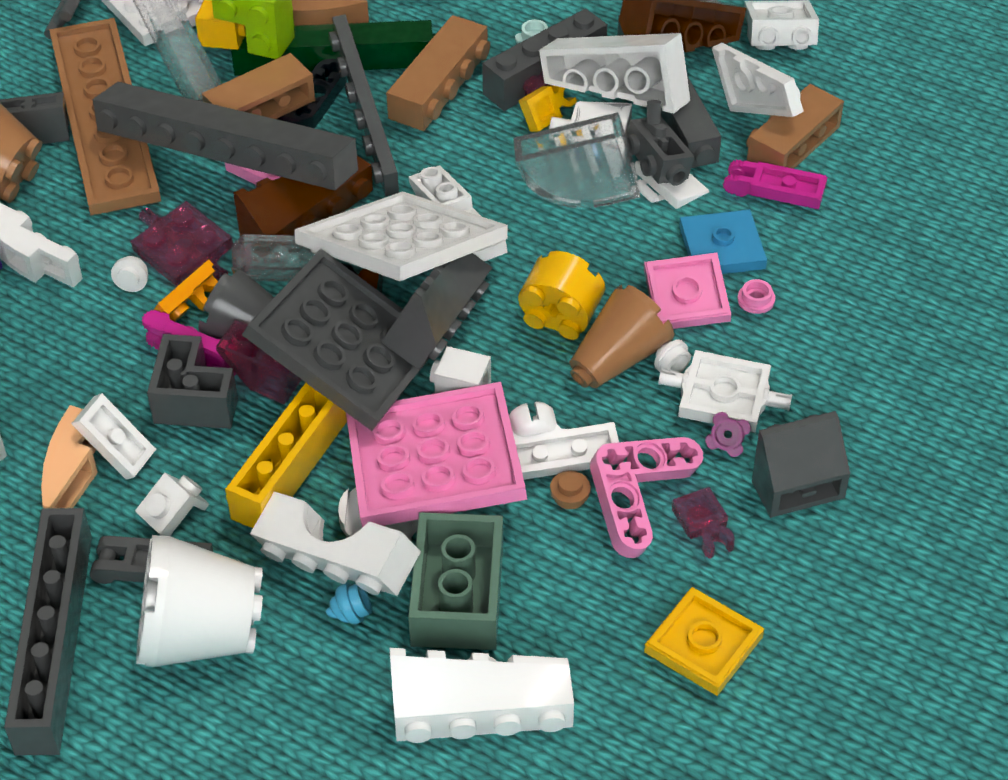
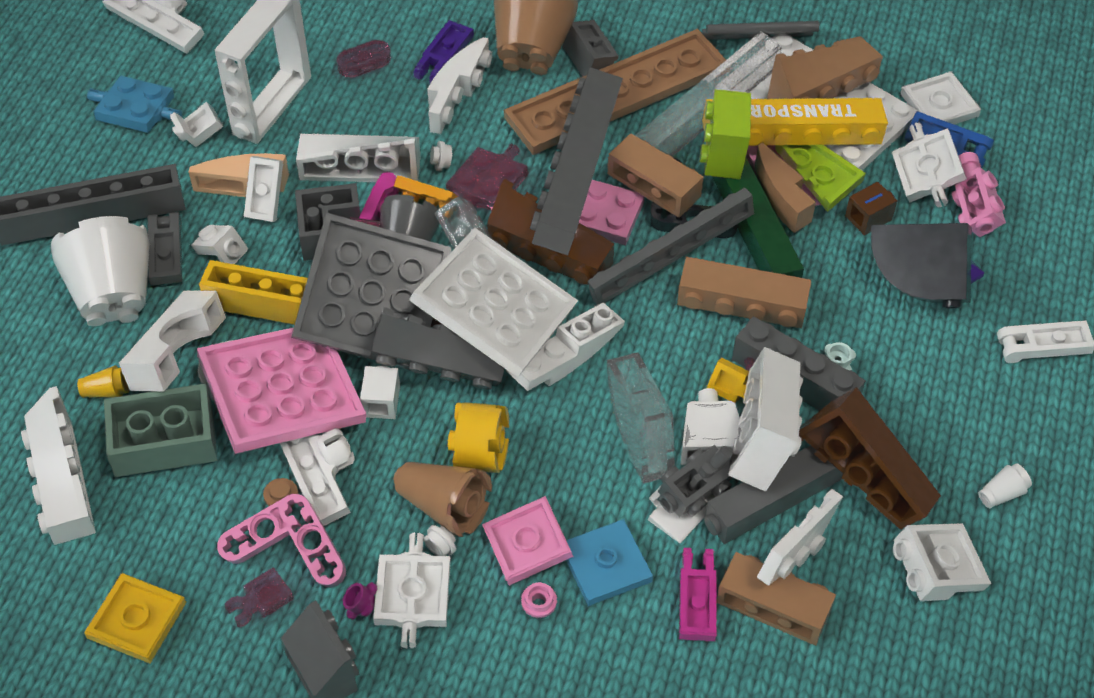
camera: 75 degrees right, 5 degrees up
(98, 340) = (356, 157): none -> white wedge
(355, 642) = (105, 383): none -> yellow cone

